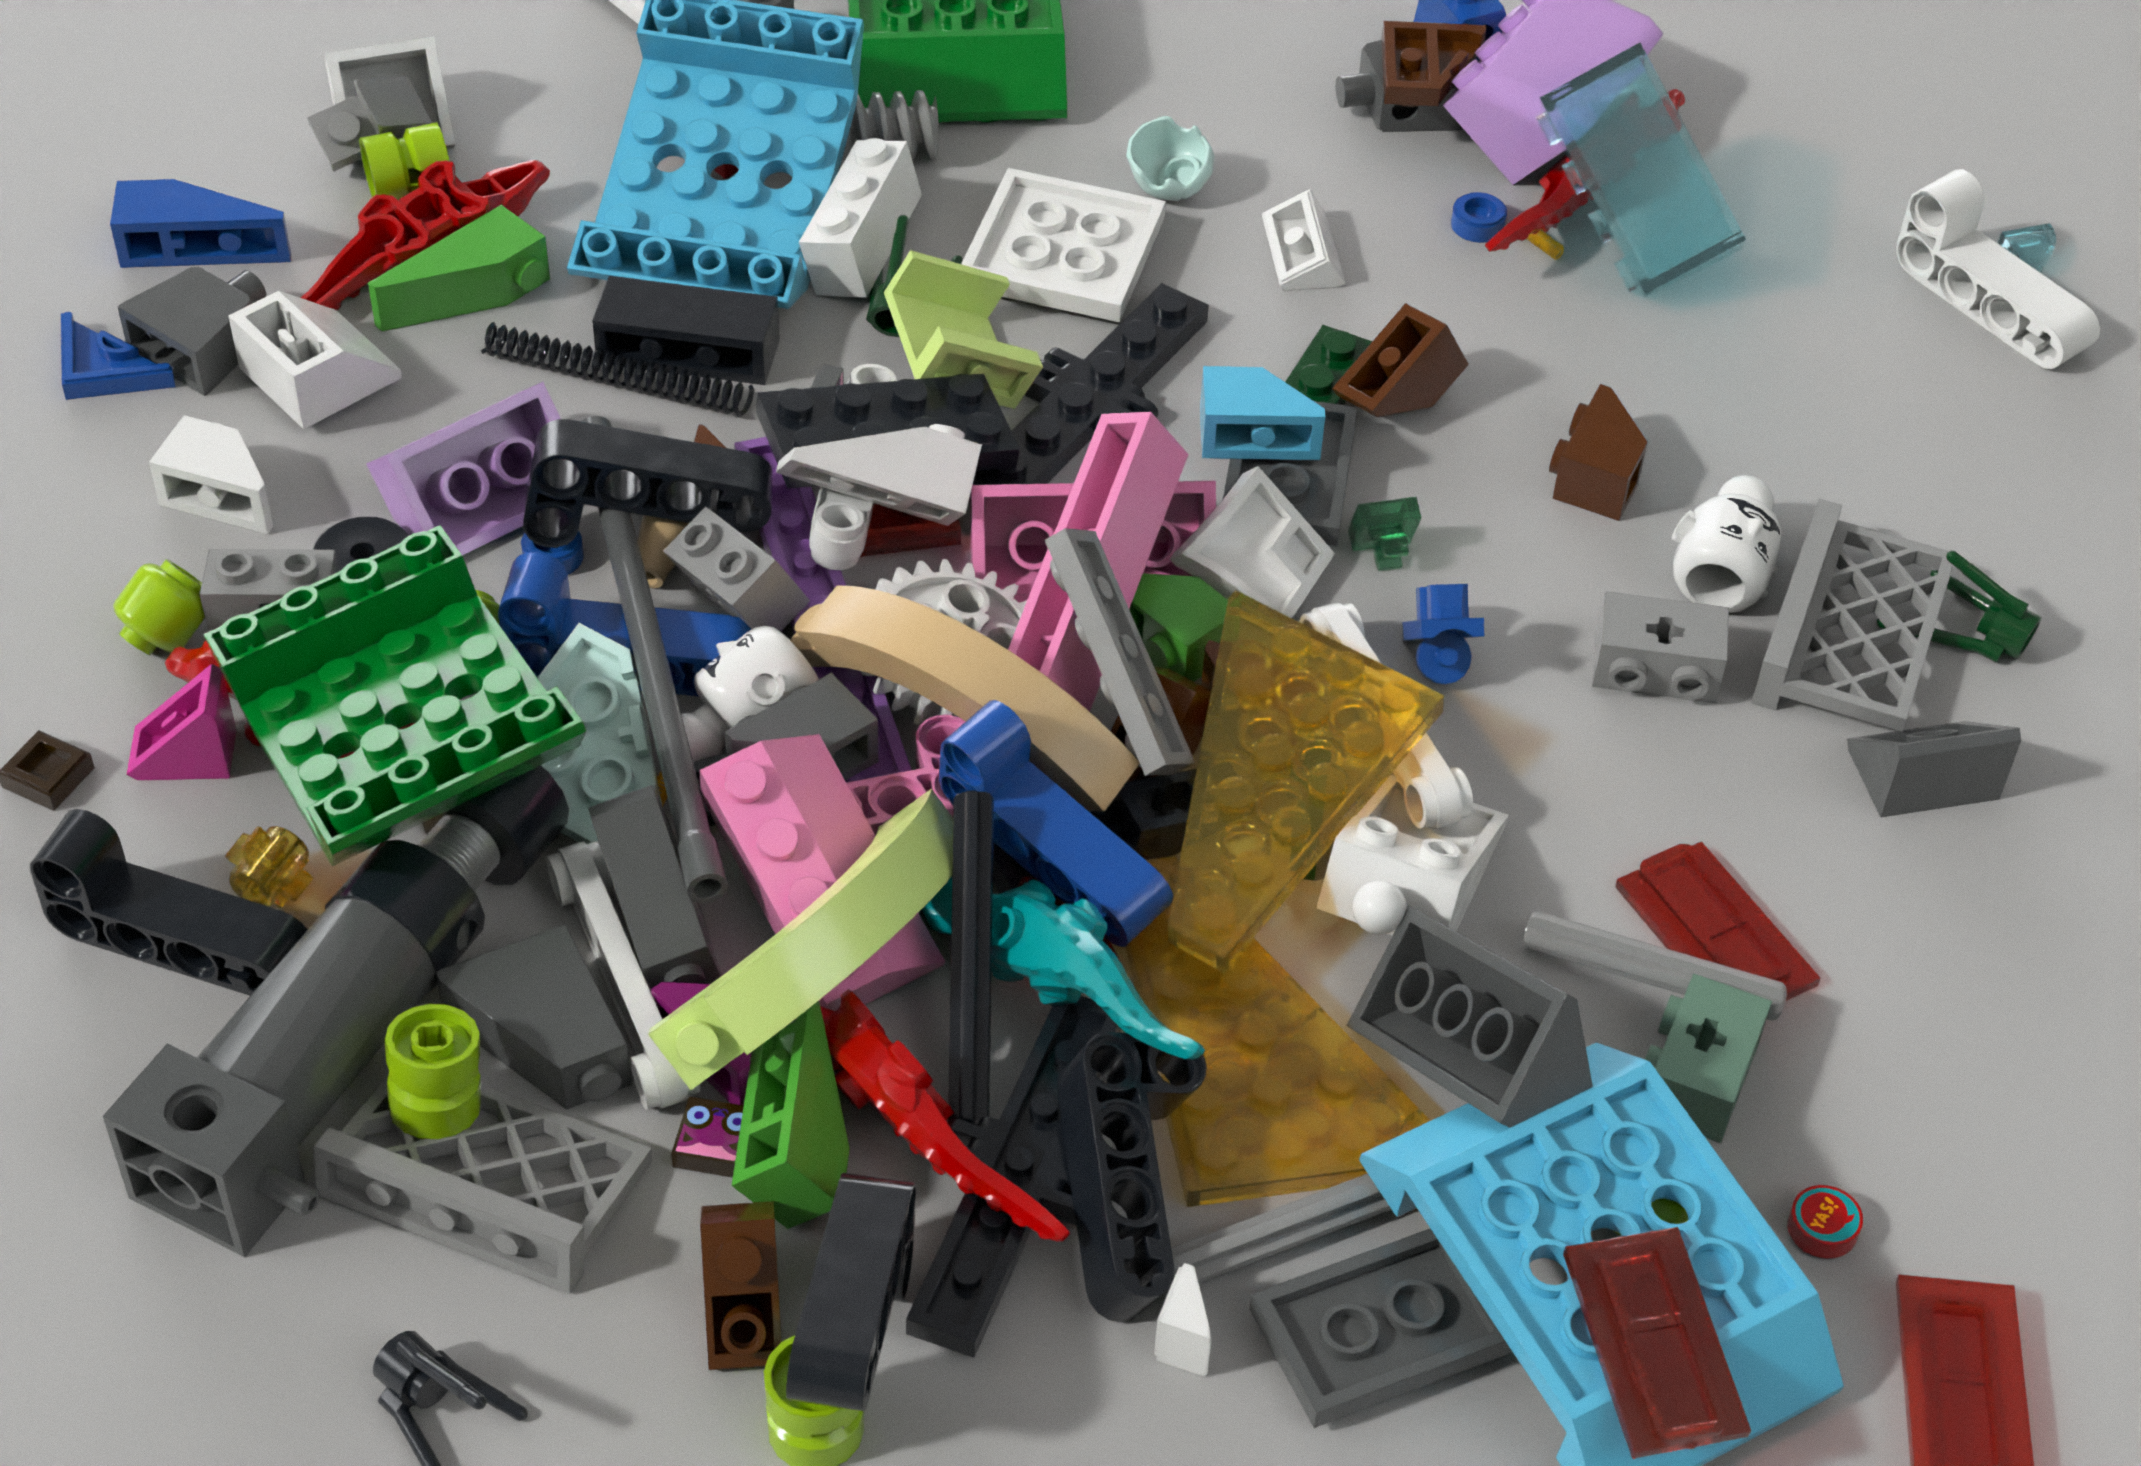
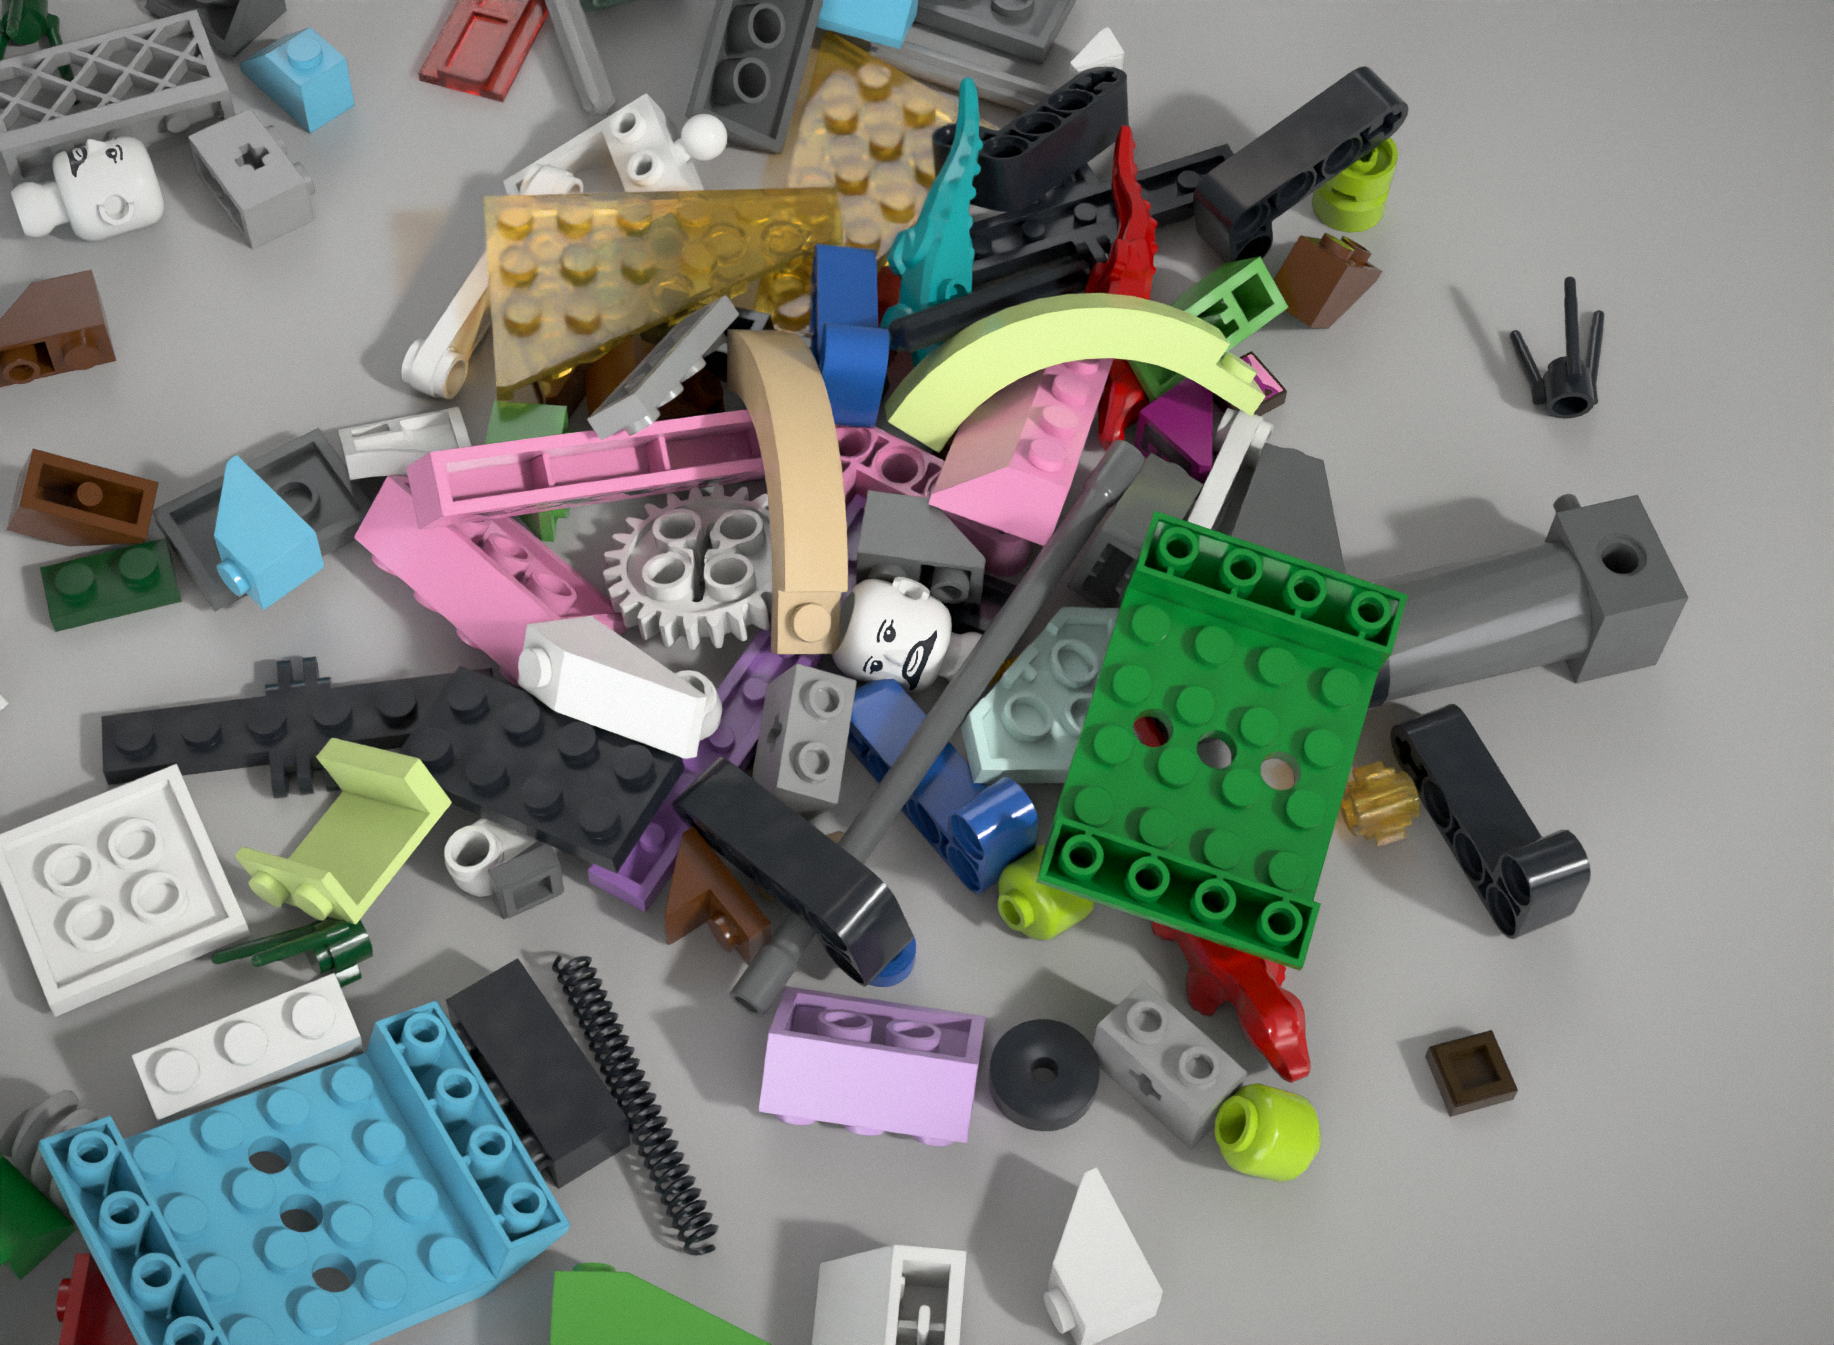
camera: 135 degrees left, 10 degrees up
(187, 734) = (1347, 990): dark pink slope -> none
(433, 1071) = (1412, 515): lime wheel -> none
(456, 1204) = (1452, 445): light grey fence -> none
(1386, 529) = (281, 404): clear green tile -> none
(1443, 626) = (375, 290): blue hips -> none
(1764, 746) = (303, 77): none -> medium azure slope

